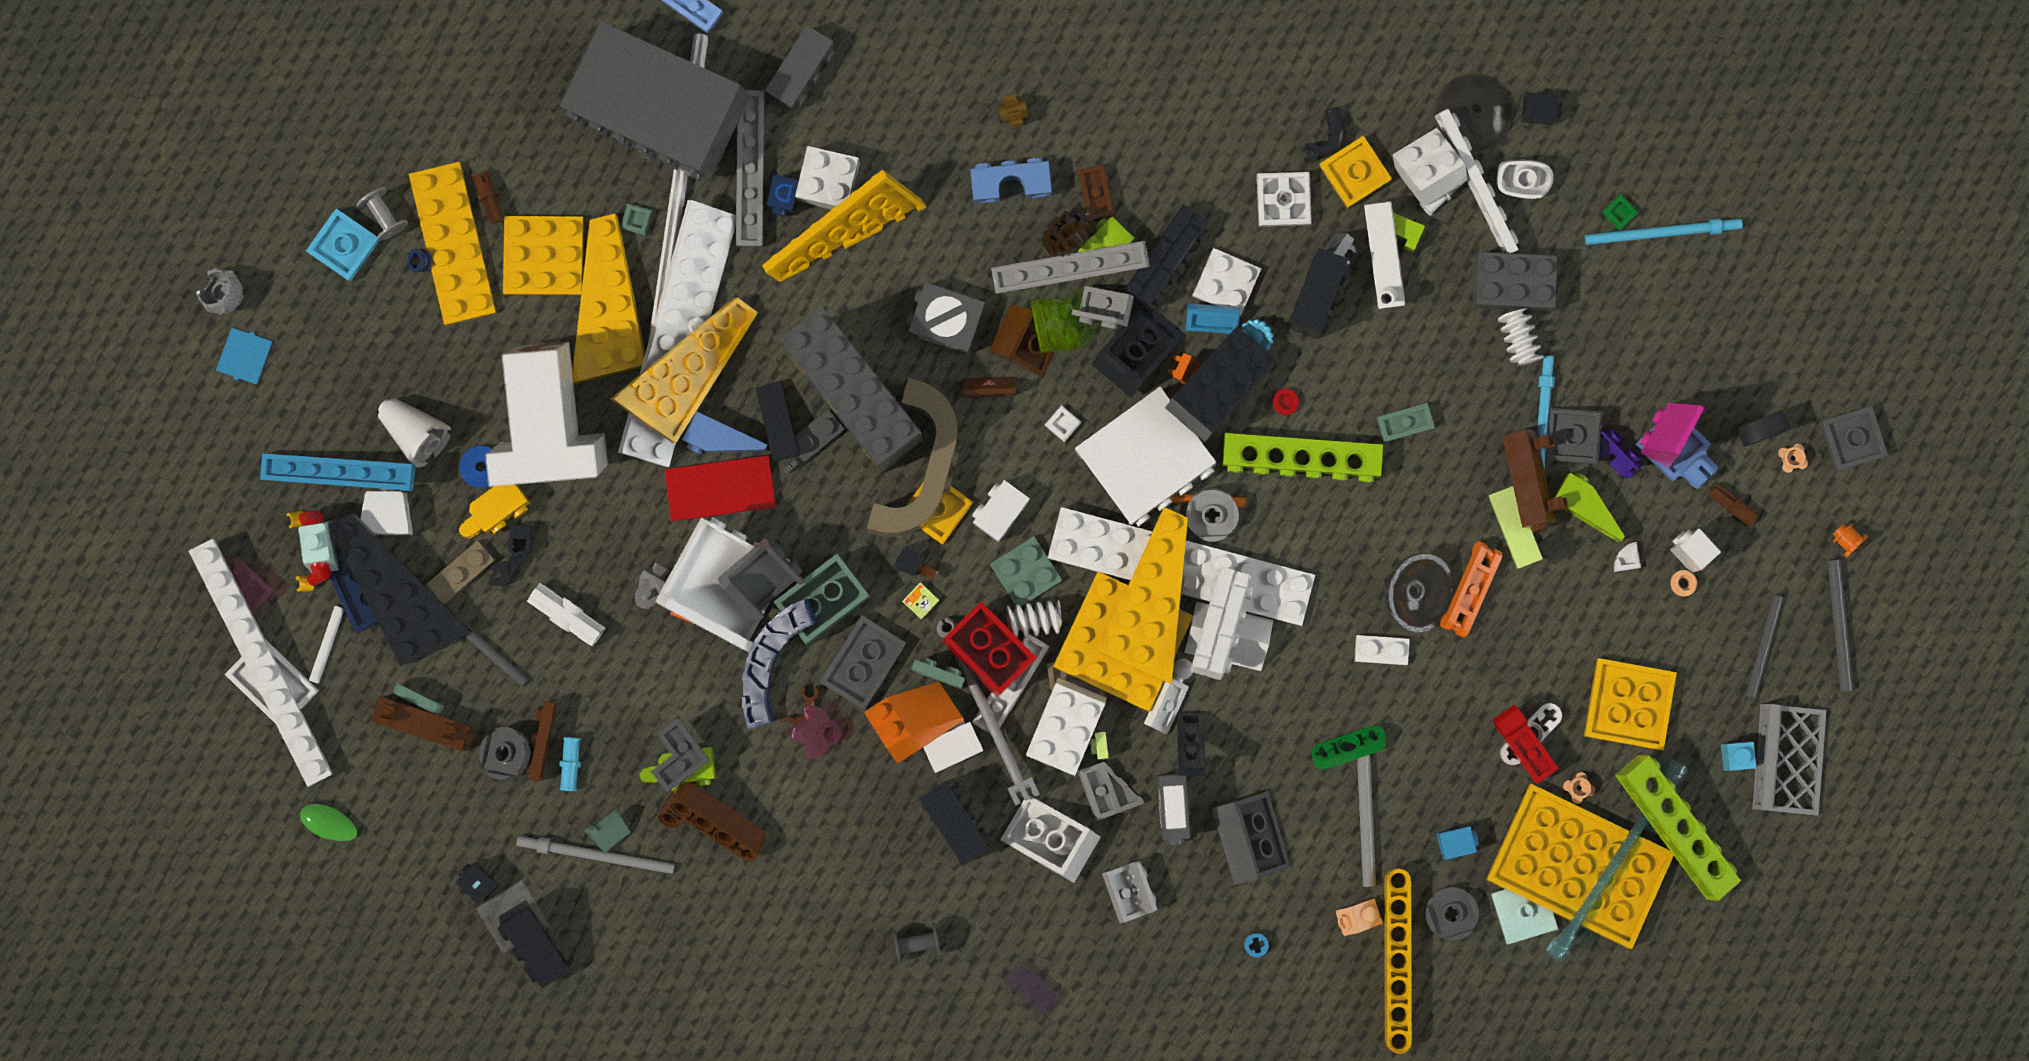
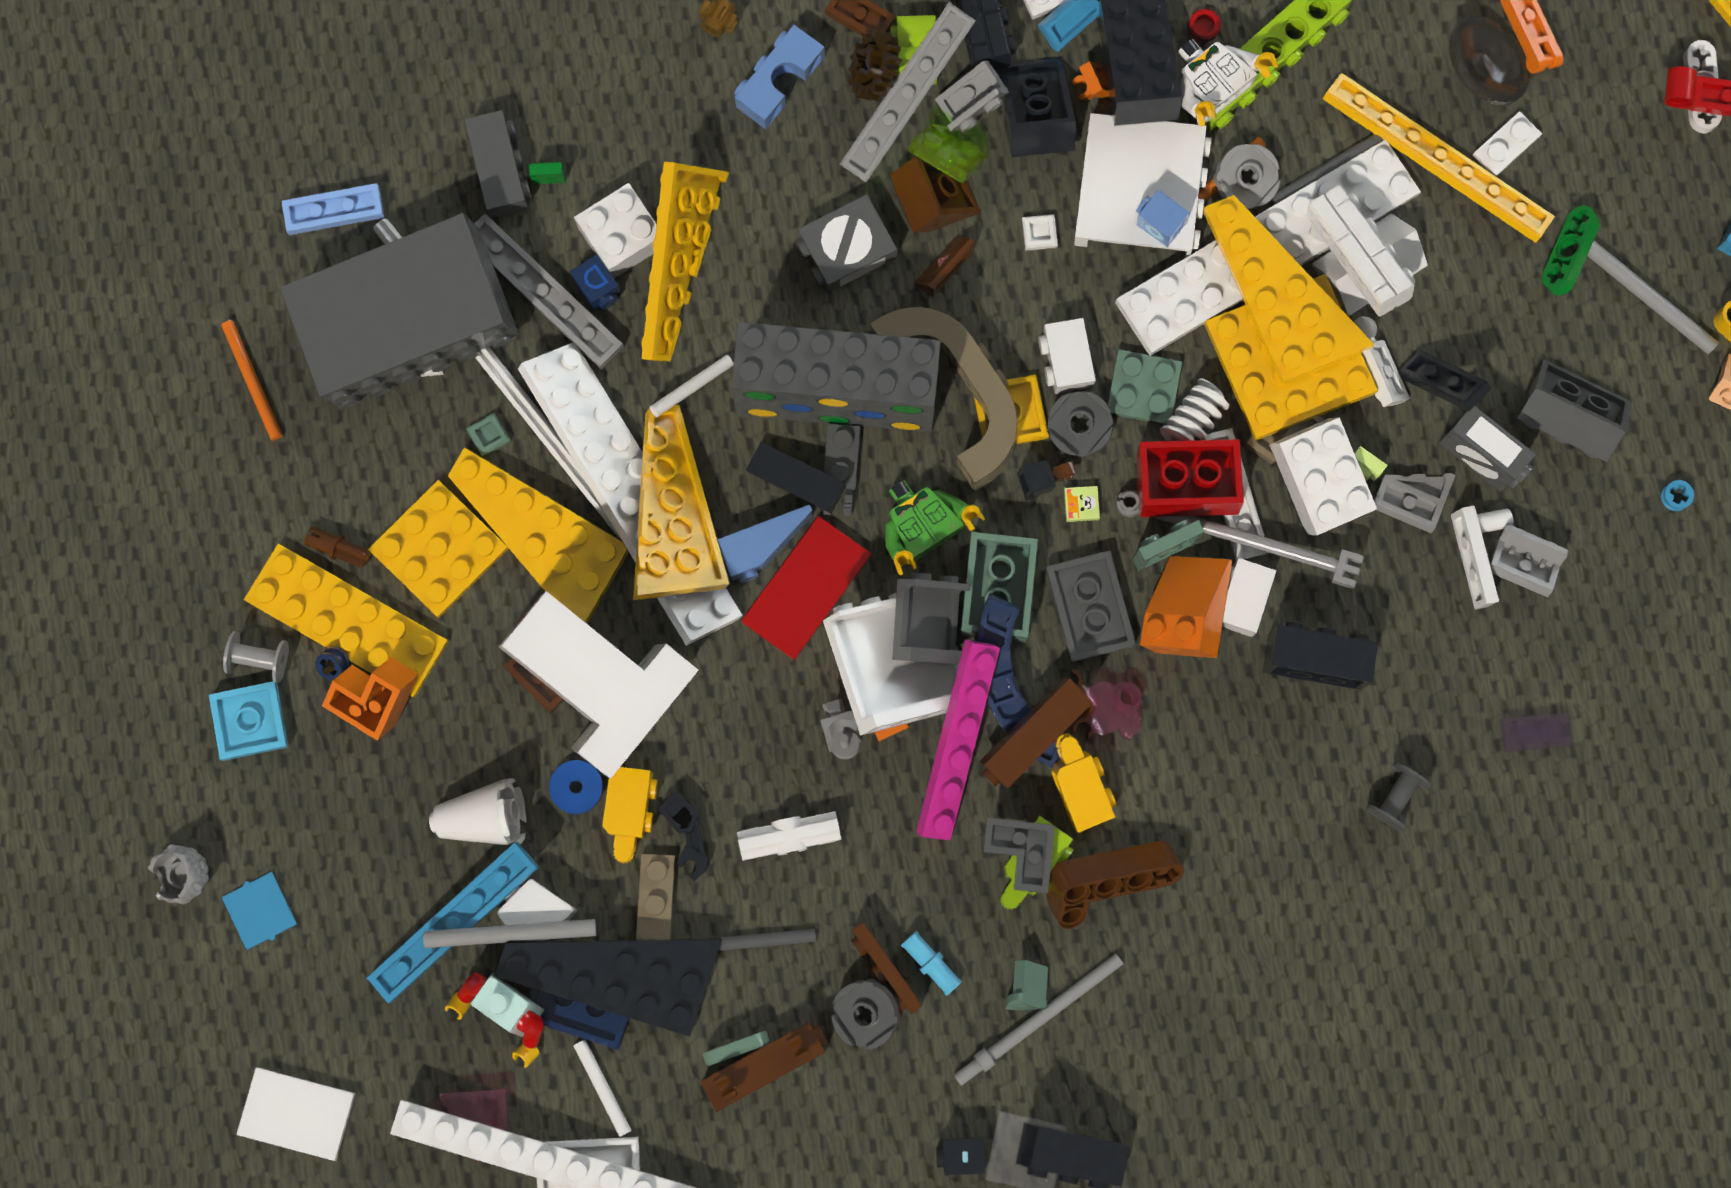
camera: 45 degrees left, 5 degrees down
(152, 487) = (296, 1114): none -> white tile
(360, 510) = (509, 933): none -> light grey piece
(417, 304) = (374, 700): none -> orange brick
(539, 52) = (251, 380): none -> orange bar
(708, 659) = (957, 740): none -> dark pink plate
(750, 753) = (1080, 785): none -> yellow hinge
(753, 699) = (1035, 733): none -> reddish brown brick
(772, 308) = (691, 386): none -> white bar
(819, 520) = (924, 522): none -> bright green torso
(822, 102) = (547, 173): none -> green tile
(956, 545) = (1079, 405): none -> dark grey plate
(1050, 838) = (1411, 587): white slope -> none
(1118, 840) = (1468, 531): none -> white piece
(1130, 488) = (1161, 217): none -> medium blue brick
(1248, 441) = (1218, 77): none -> white torso
(1265, 556) = (1326, 168): none -> dark grey bar
(1334, 616) = (1438, 157): none -> yellow tile

